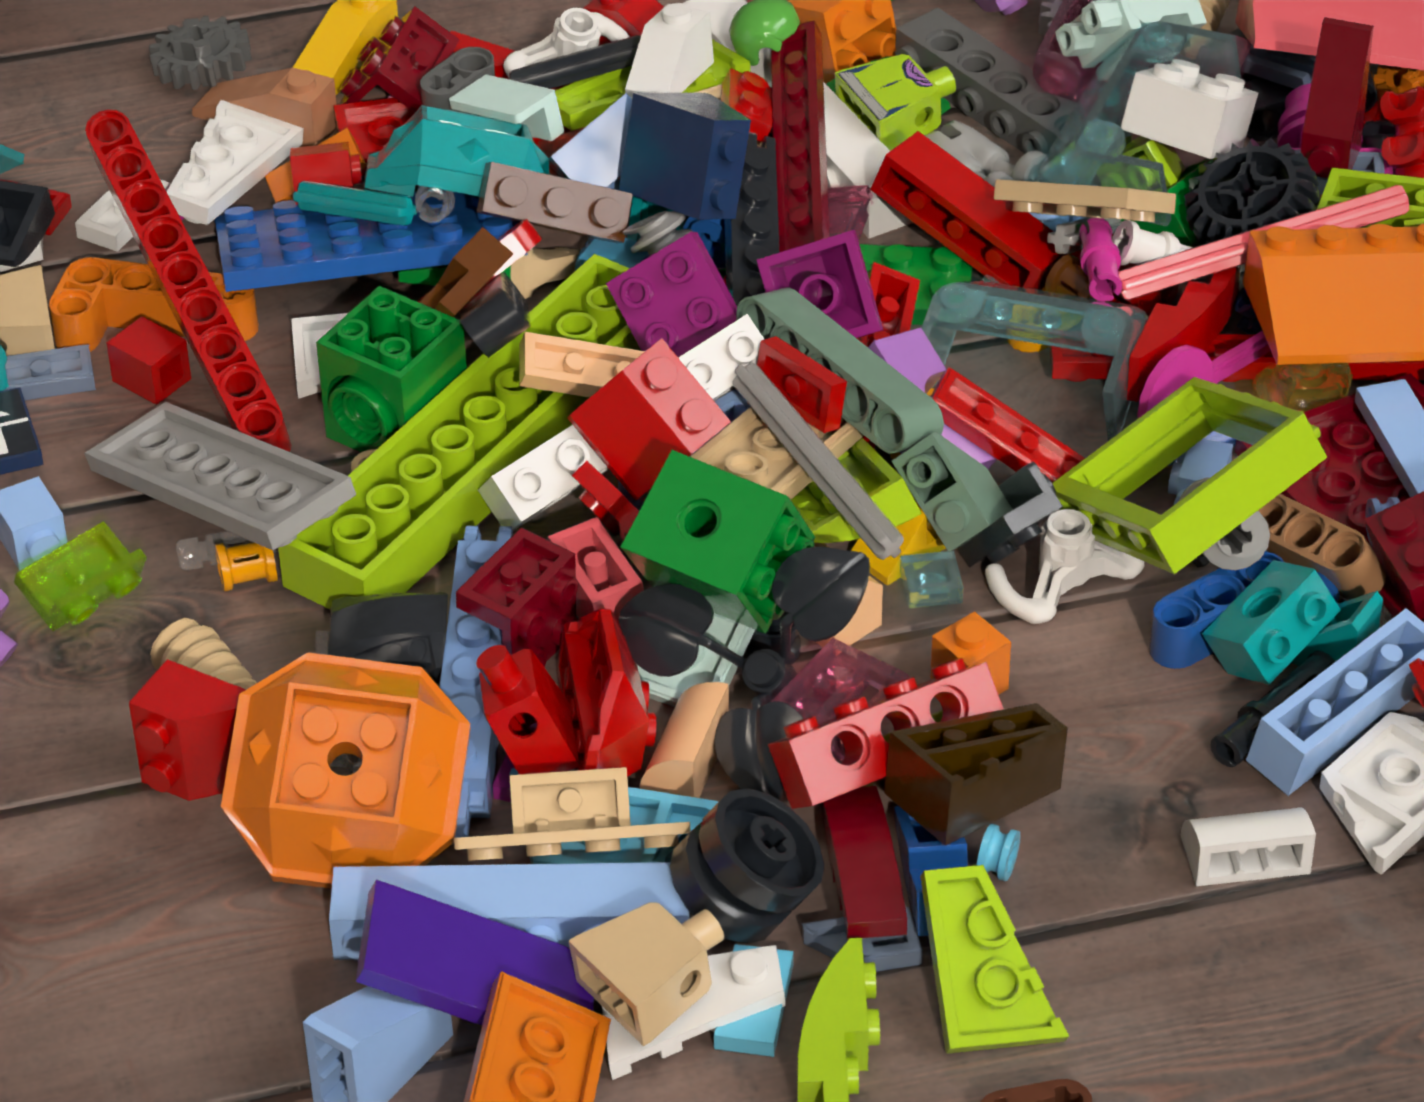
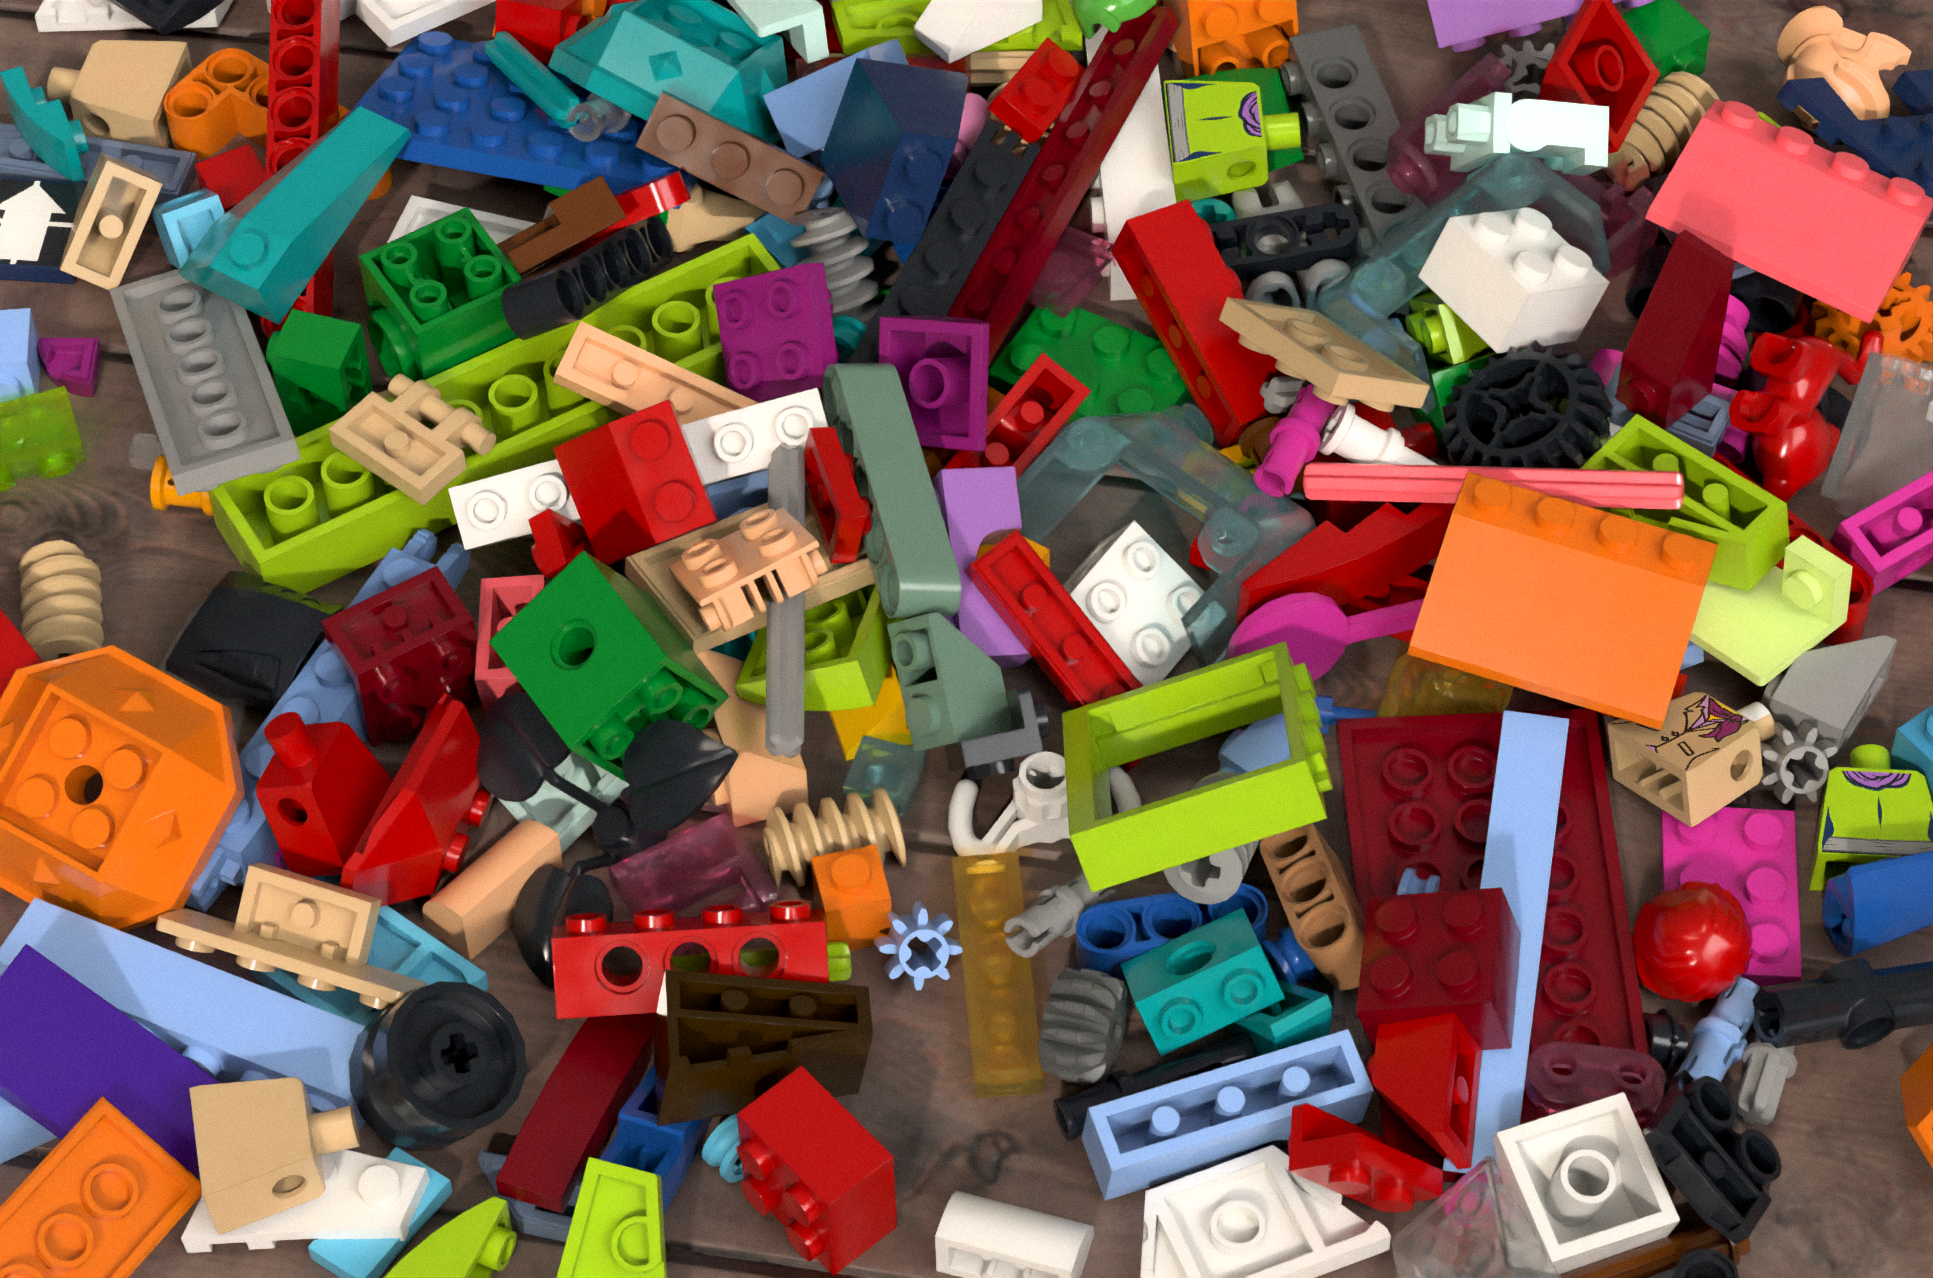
camera: 25 degrees right, 10 degrees up
(57, 401) = (109, 221): none -> tan slope
(83, 512) = (72, 363): none -> magenta tile
(132, 388) = (185, 222): none -> medium azure brick
(227, 350) = (287, 226): none -> teal wedge
(314, 429) = (318, 369): none -> green brick
(432, 456) = (402, 449): none -> tan plate
(787, 437) = (765, 542): none -> light nougat hinge
(906, 630) = (794, 843): none -> tan piece
(1013, 133) = (1287, 224): none -> black beam
(1041, 674) = (928, 963): none -> light blue gear
(1043, 400) = (1136, 601): none -> white bracket
(1082, 835) = (816, 1171): none -> red brick
(1109, 677) = (996, 978): none -> clear yellow plate
(1130, 617) = (1053, 915): none -> light grey pin
(1204, 681) = (1083, 1026): none -> dark grey gear

